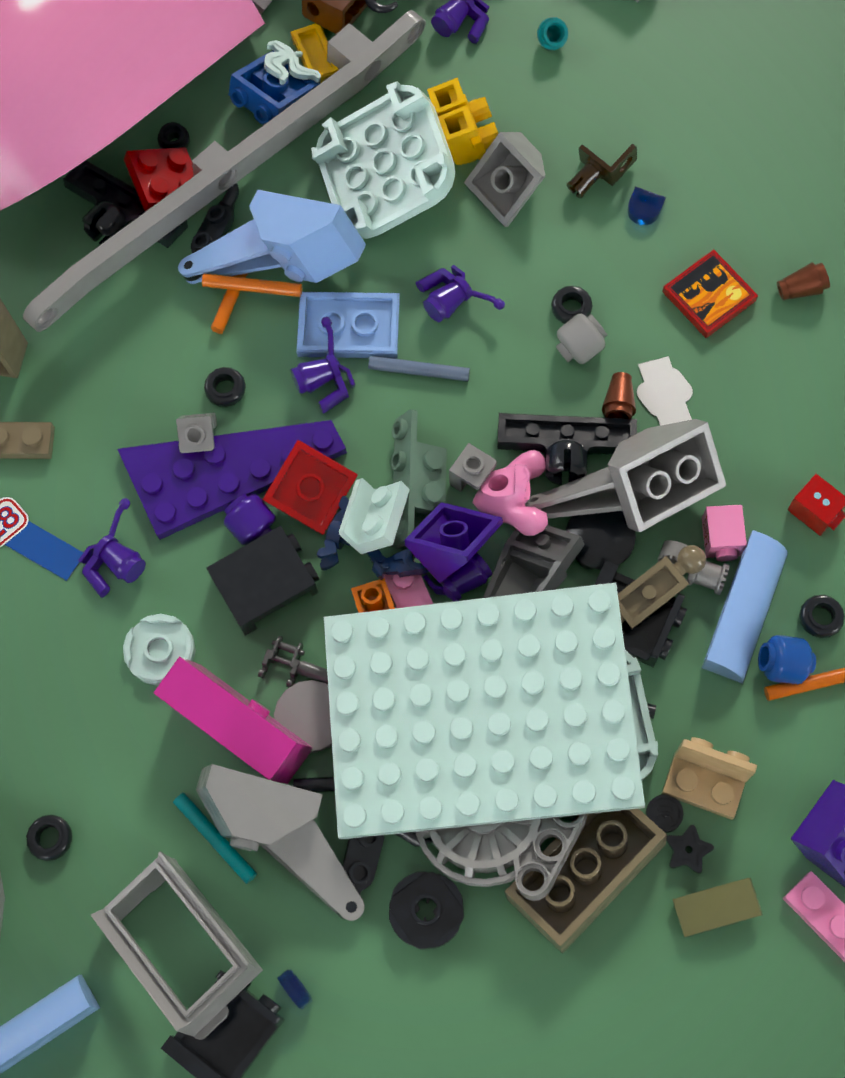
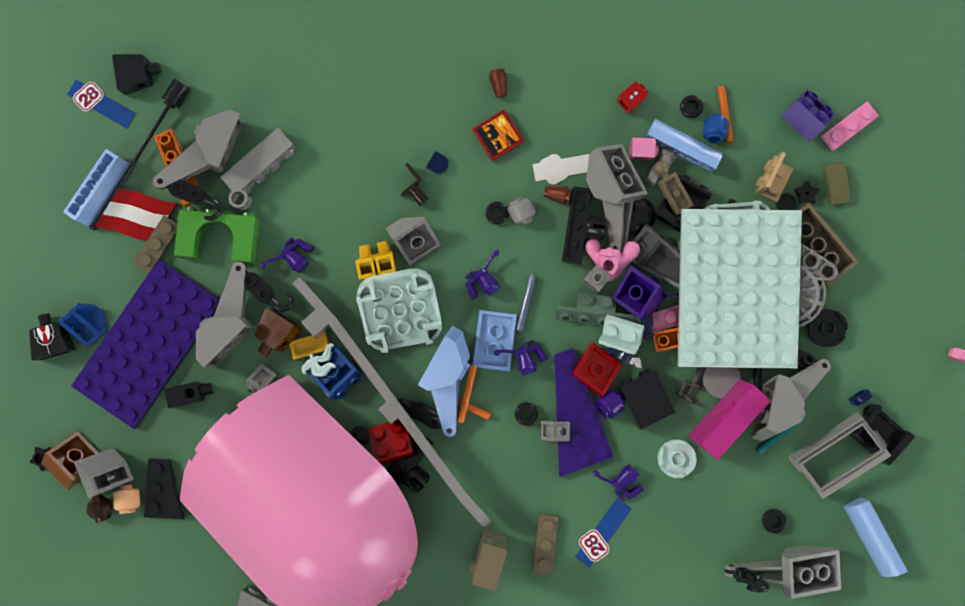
camera: 85 degrees left, 15 degrees up
(552, 33) = (317, 201): teal plate -> none

